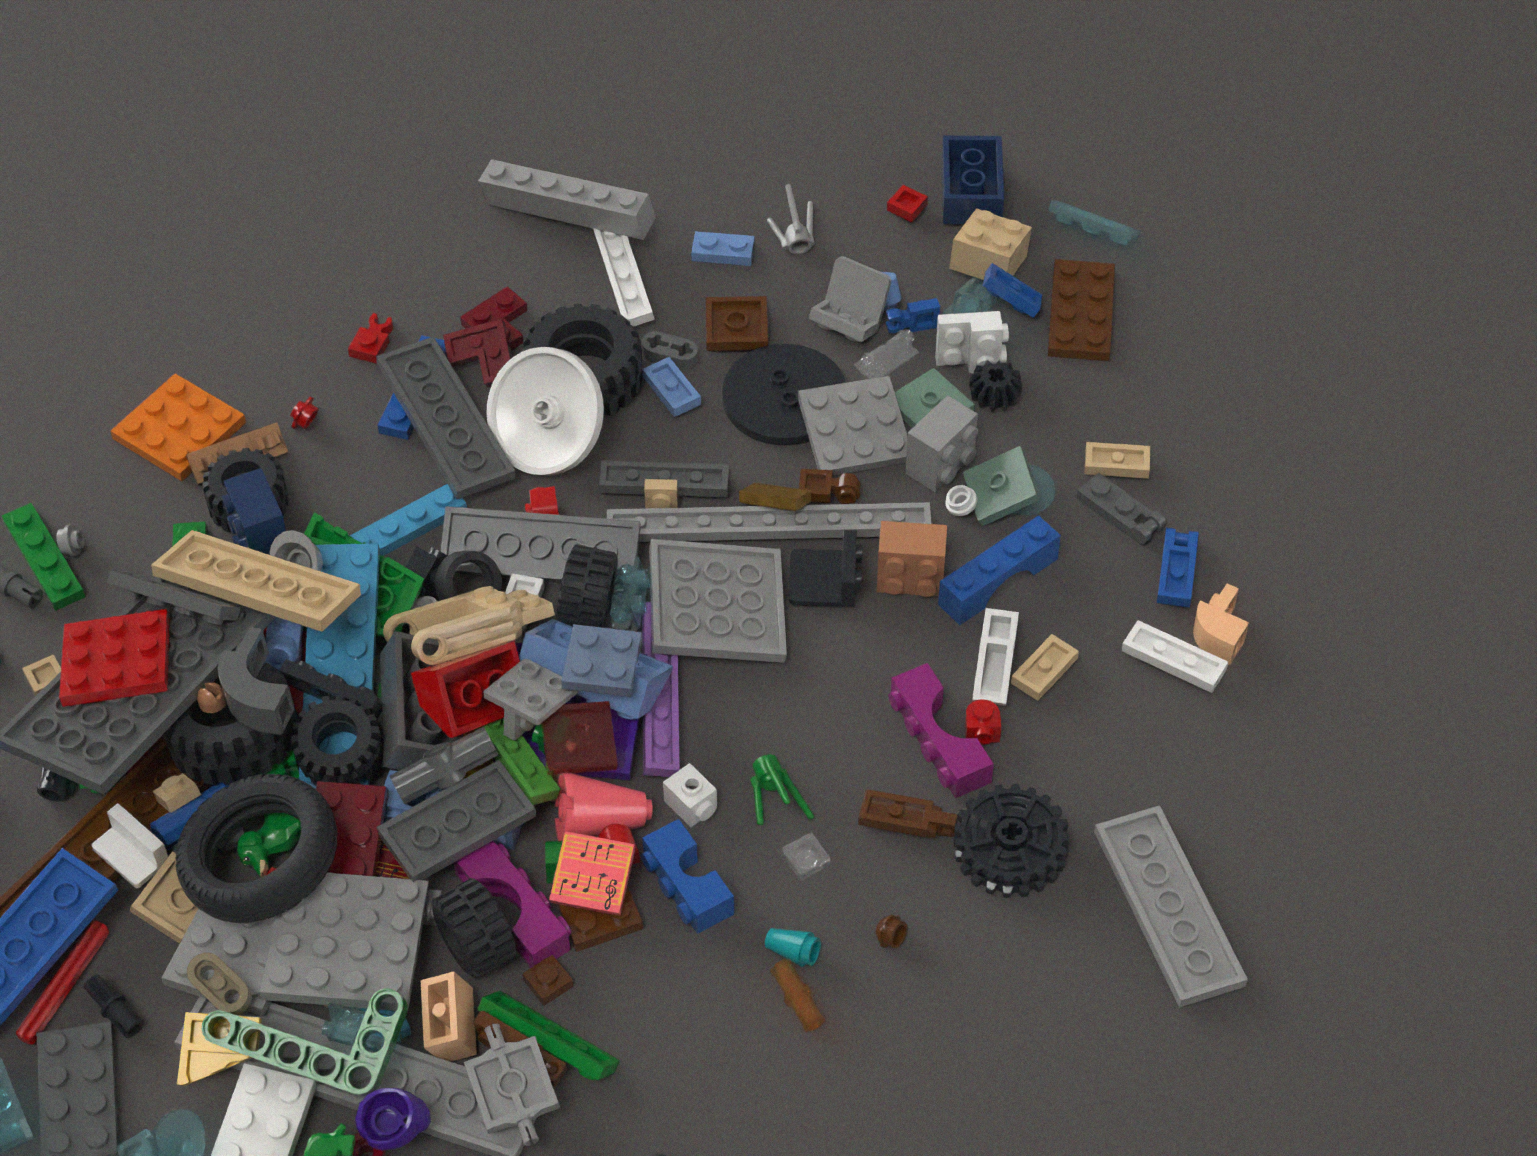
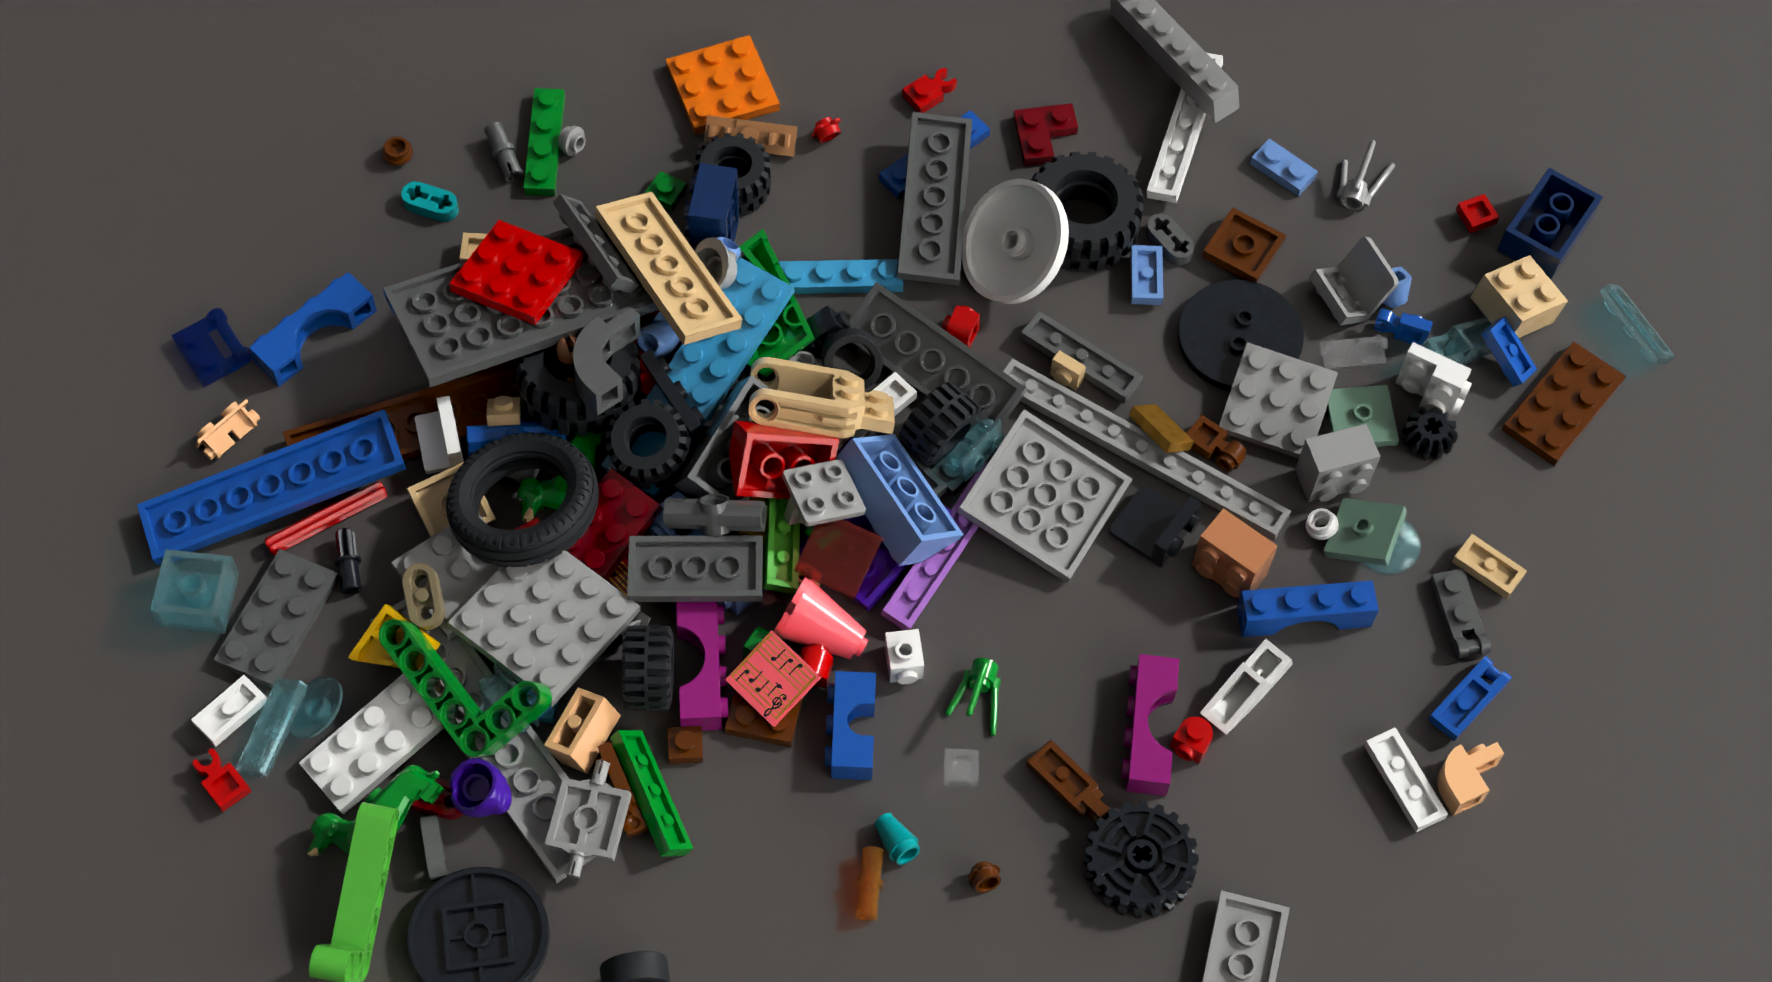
camera: 30 degrees right, 10 degrees up
(483, 343) = (1013, 146): dark red plate -> none
(601, 660) = (894, 500): sand blue plate -> none
(1044, 667) = (1283, 721): tan plate -> none

